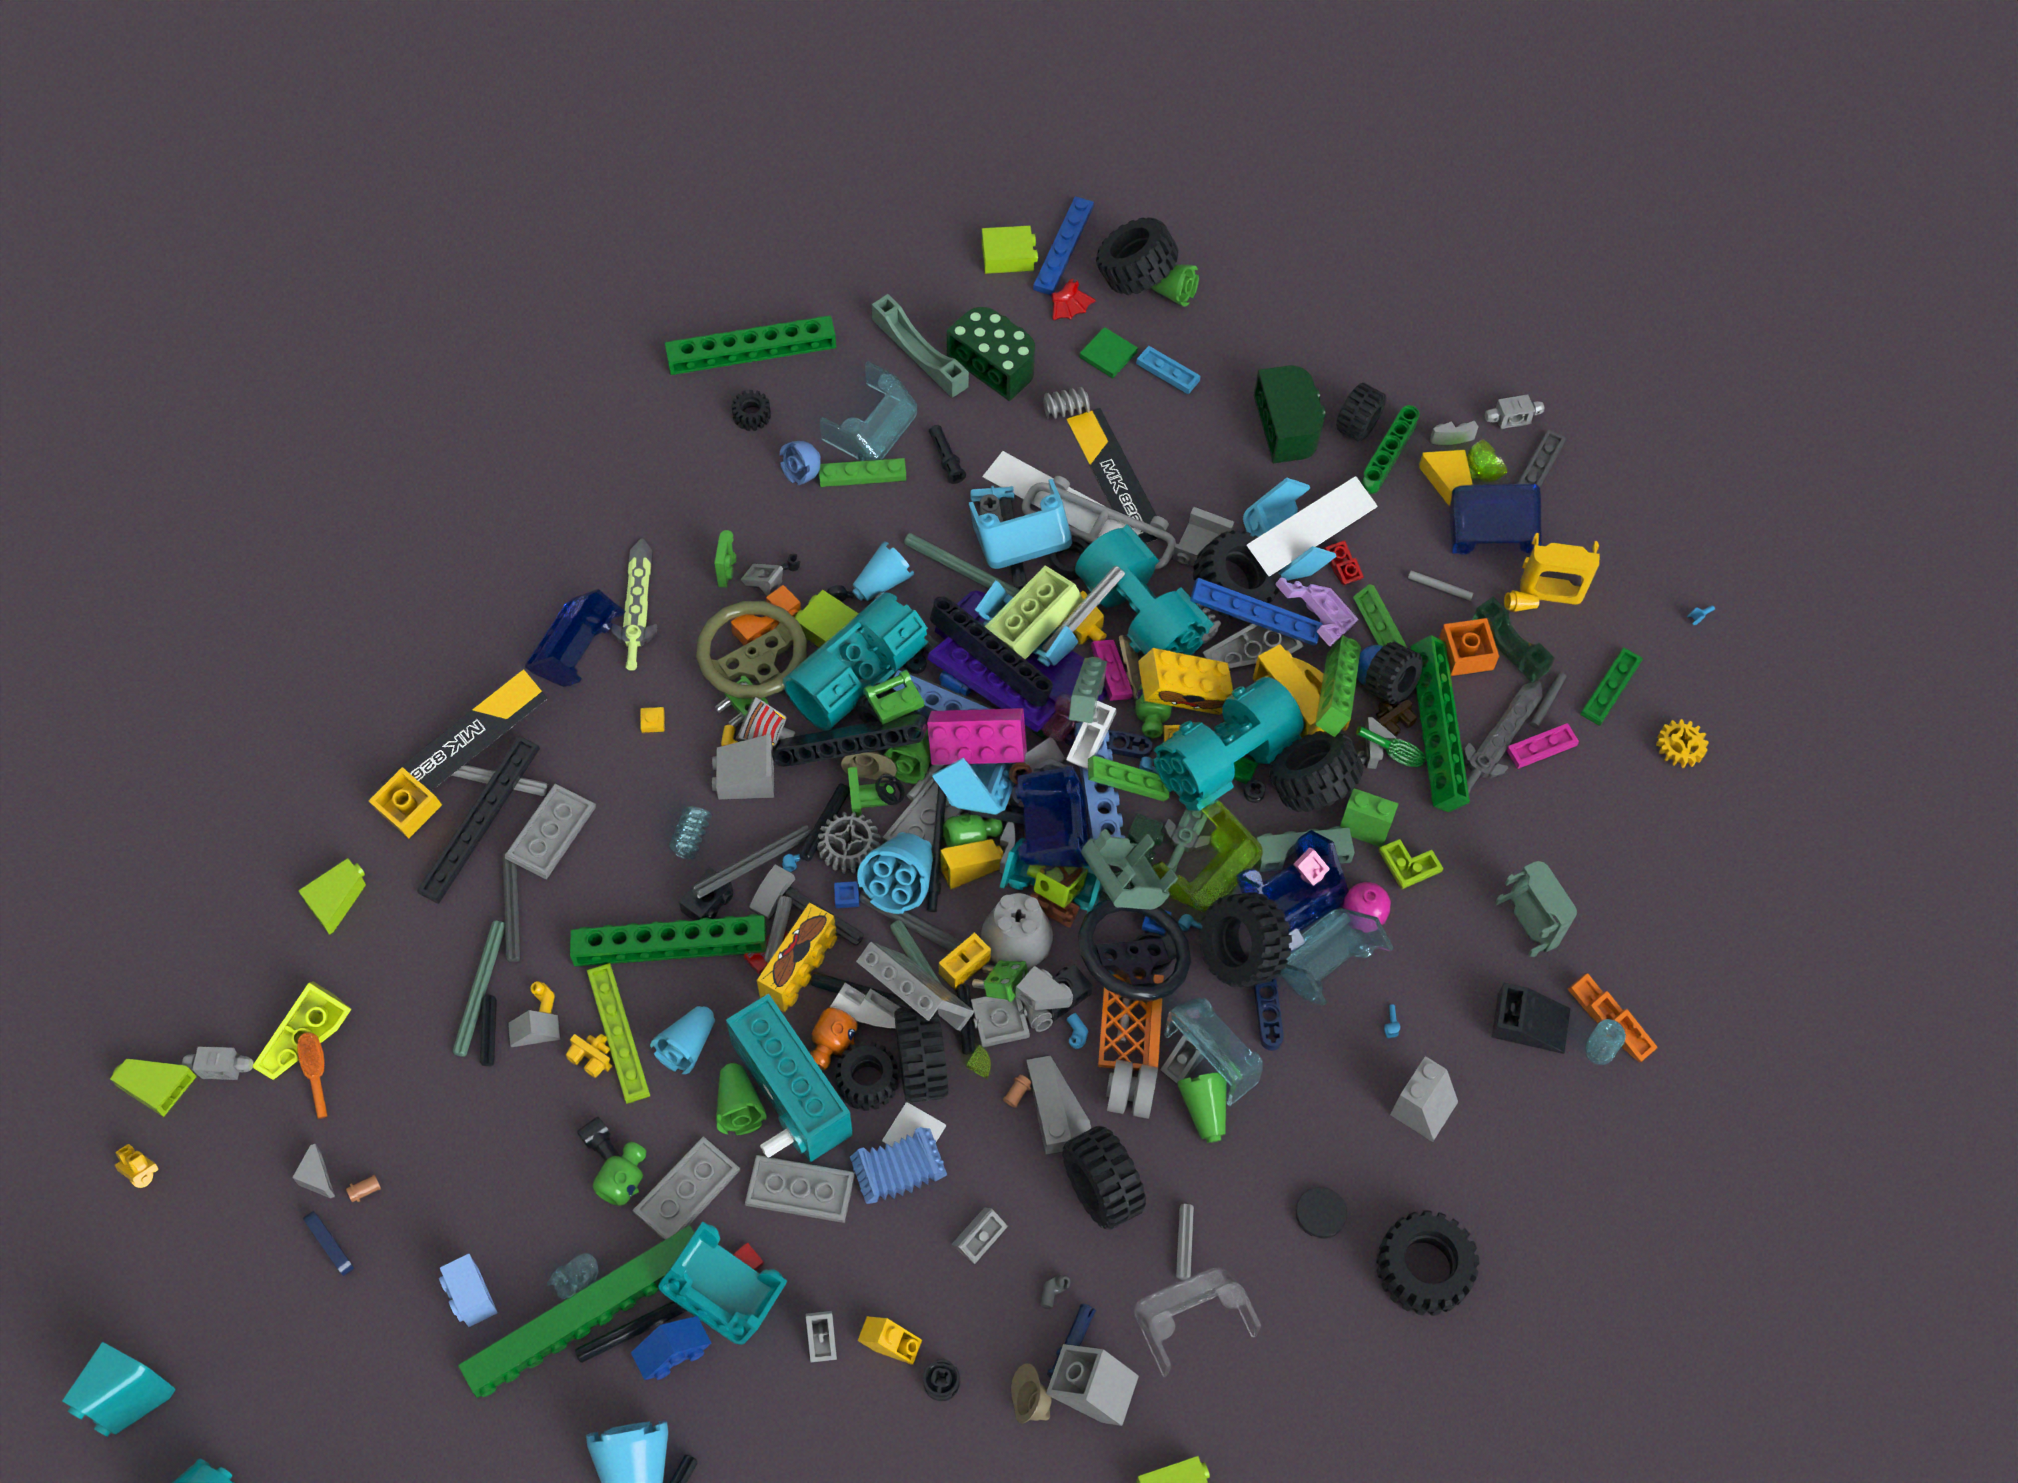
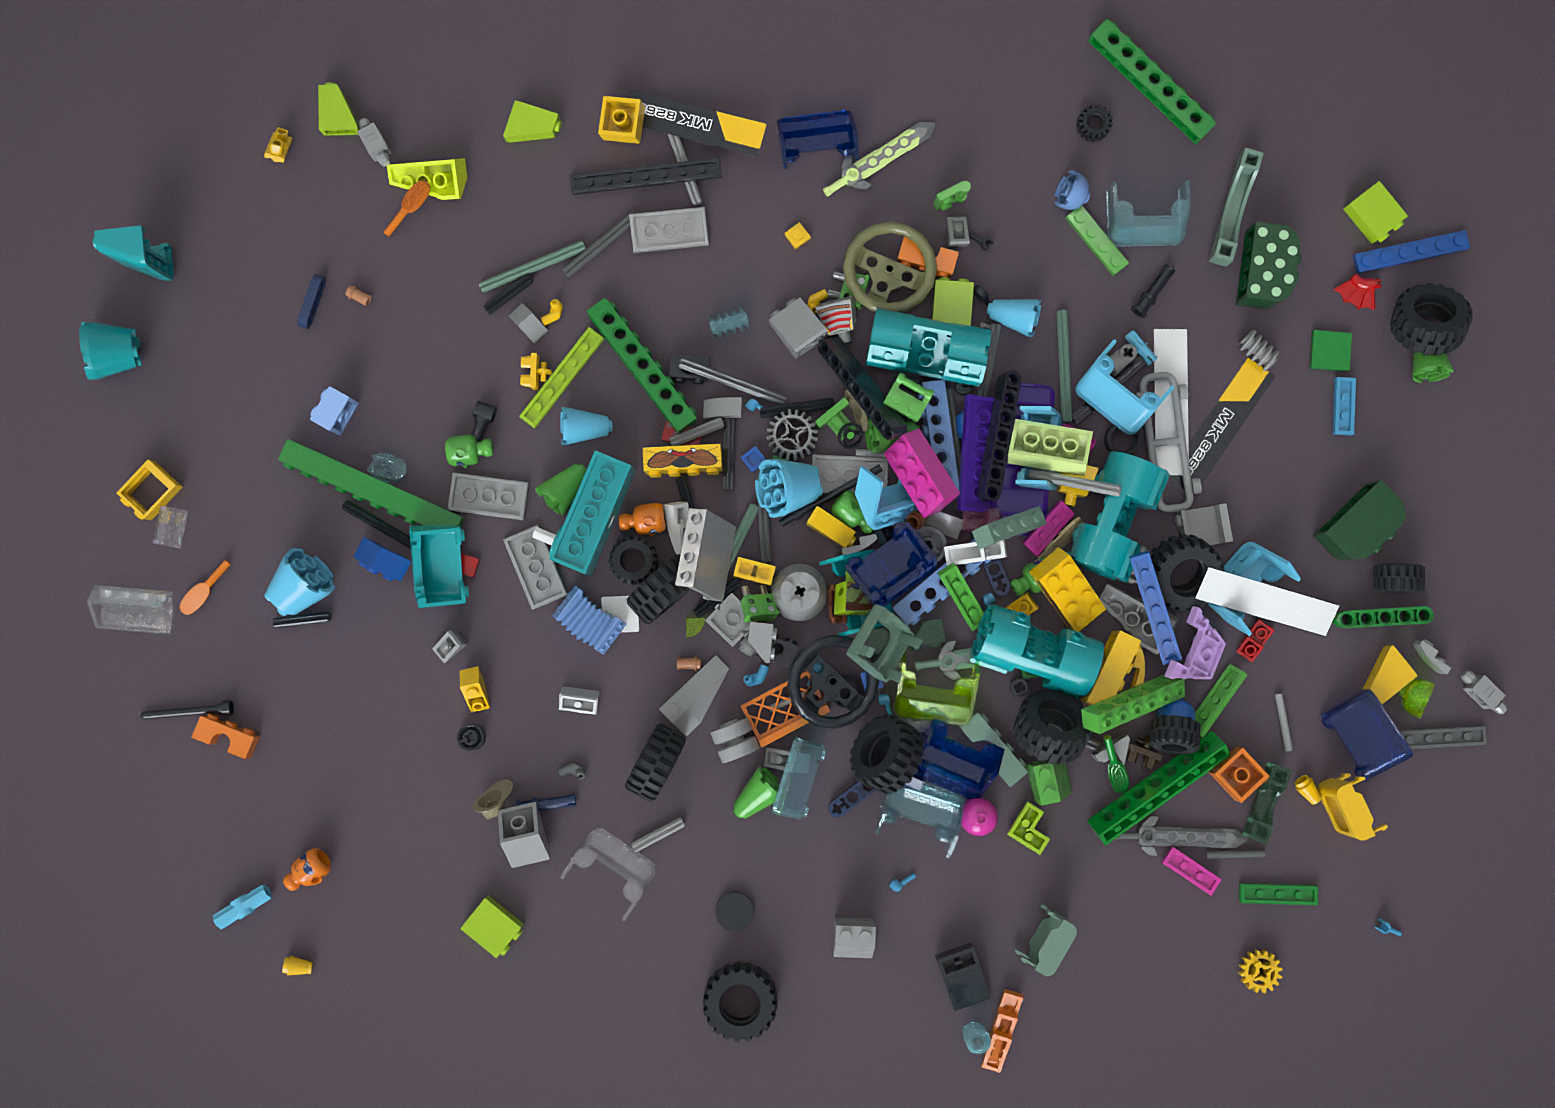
camera: 60 degrees right, 25 degrees up
(313, 1173) = (347, 258): light grey slope -> none
(1311, 867) = (976, 765): bright pink bracket -> none

